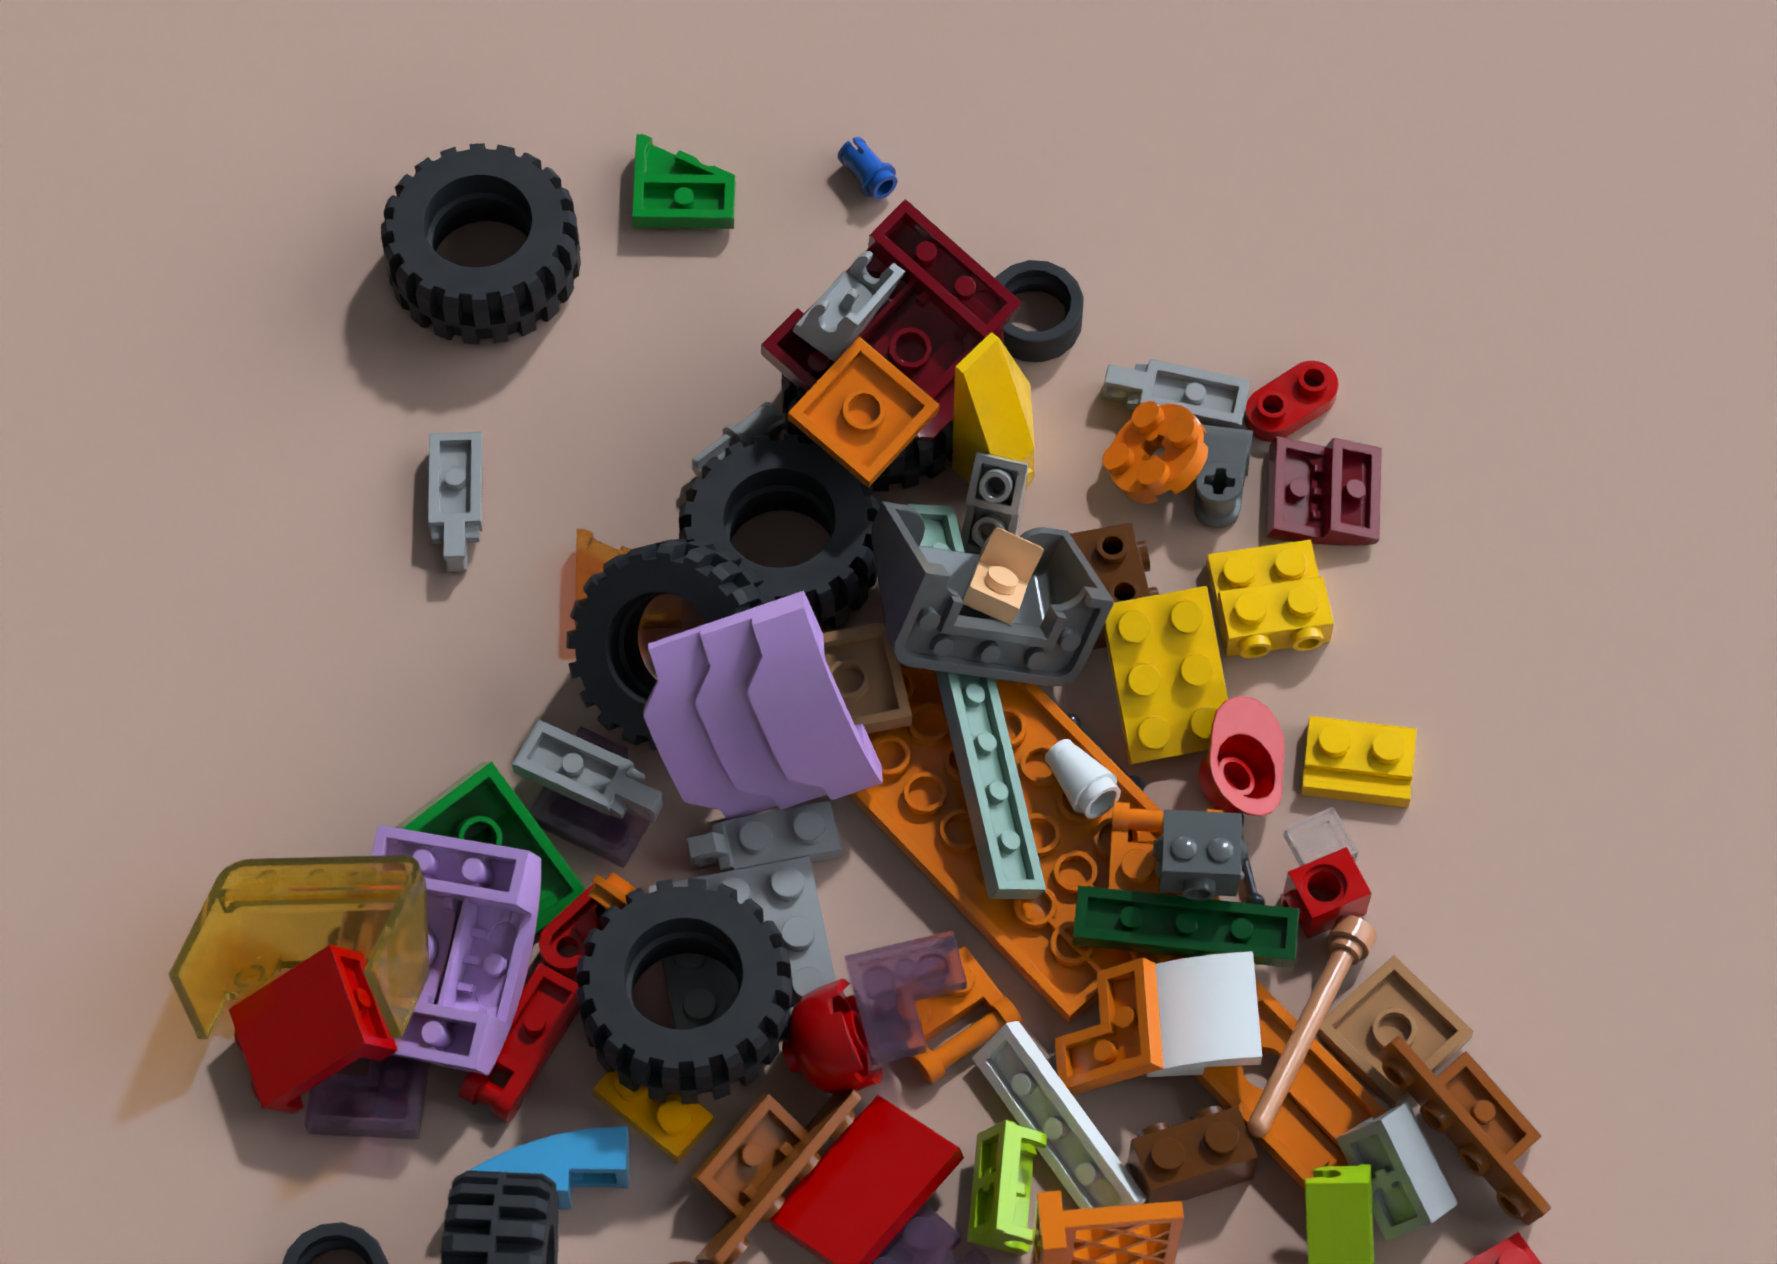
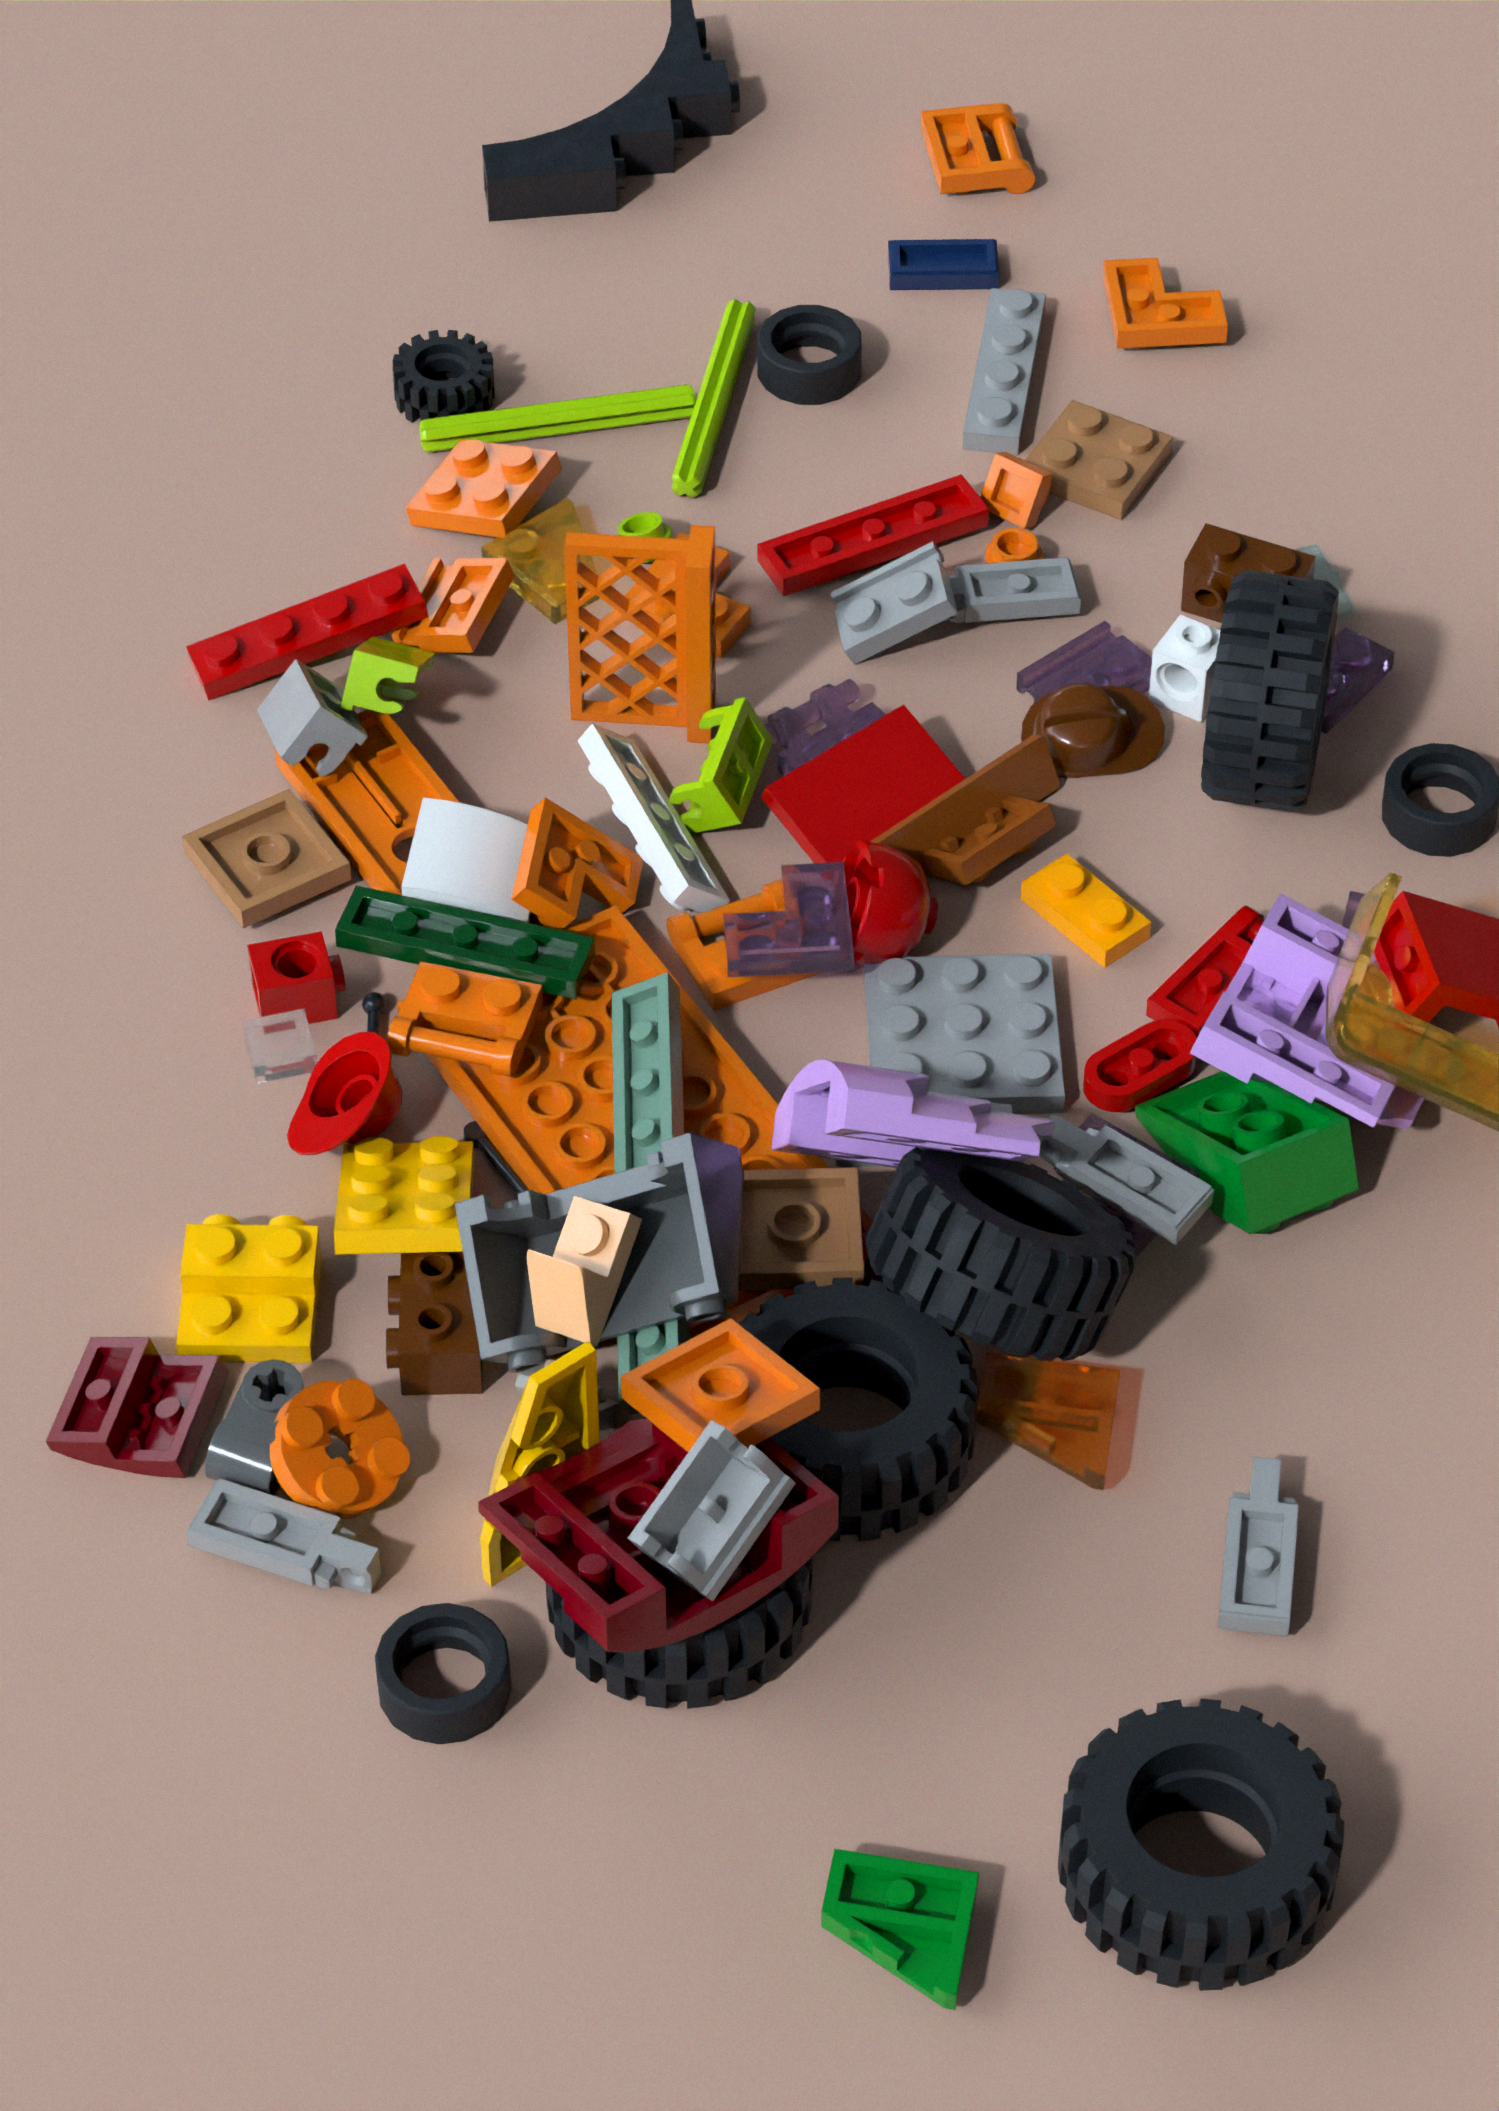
camera: 170 degrees left, 15 degrees down
(571, 1160) = (1209, 852): dark azure slope -> none
(610, 891) = (1107, 1051): orange plate -> none
(673, 924) = (1033, 985): black tyre -> none
(758, 423) = (878, 1562): light grey axle -> none
(875, 177) = (619, 1894): blue pin -> none
(1083, 780) = (539, 1092): white cone -> none
(1192, 1156) = (520, 765): reddish brown brick -> none
(1200, 854) = (431, 962): dark grey head -> none
(1295, 399) = (138, 1521): red plate -> none
(1348, 943) = (361, 848): nougat piece -> none
(1358, 761) = (205, 1119): yellow plate -> none
(1477, 1121) = (215, 760): dark orange bracket -> none

